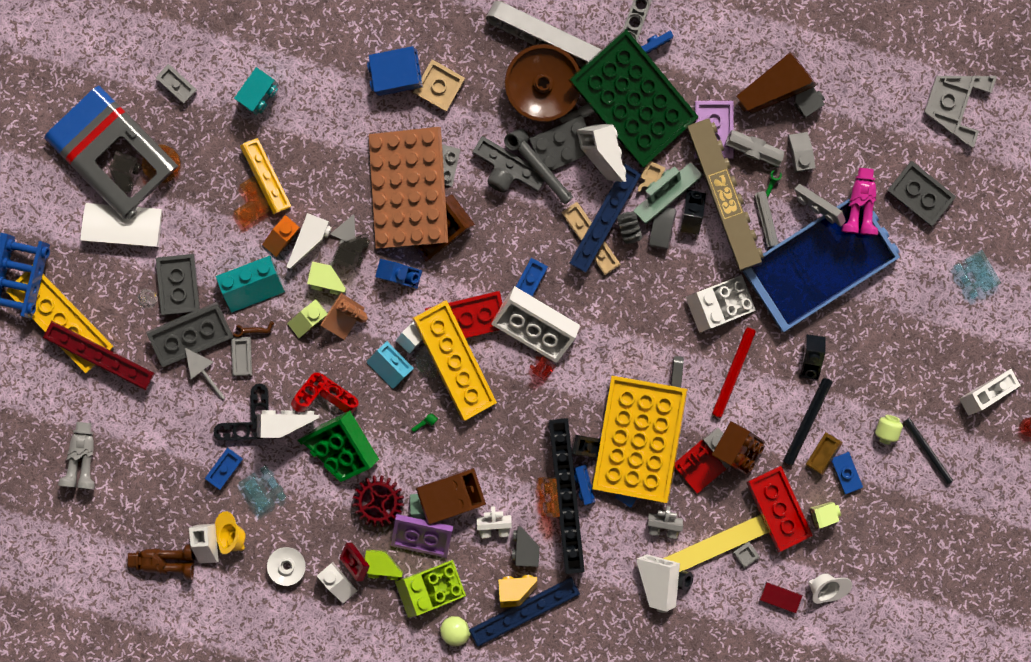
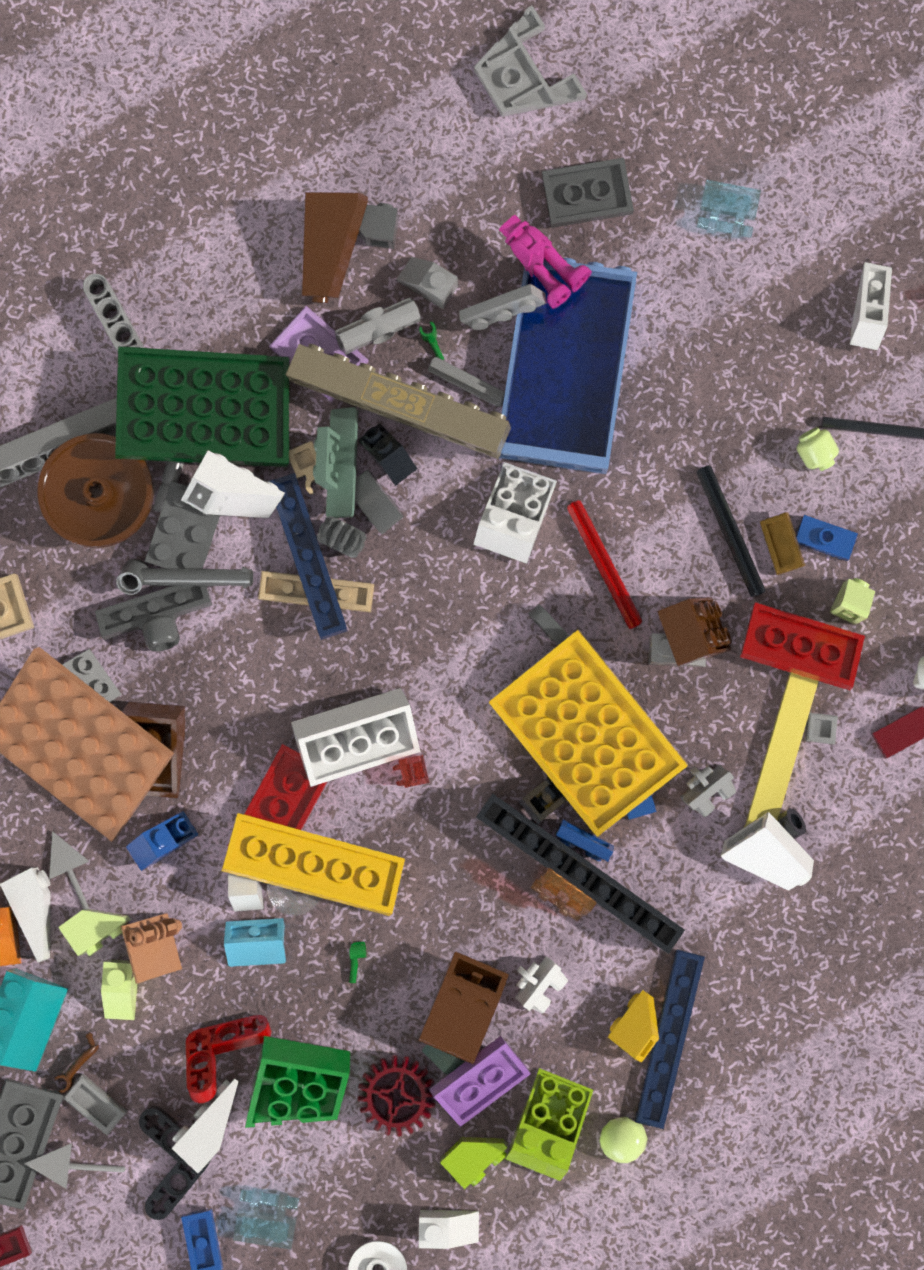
camera: 40 degrees left, 5 degrees down
(349, 251) = (87, 873): clear smoke slope -> none
(354, 562) = (442, 1187): dark red plate -> none
(526, 549) = (601, 972): dark grey slope -> none
(531, 276) = (299, 693): blue plate -> none
(655, 42) = (166, 332): blue plate -> none
(699, 466) = (676, 694): red hinge -> none
(813, 356) = (663, 462): black slope -> none

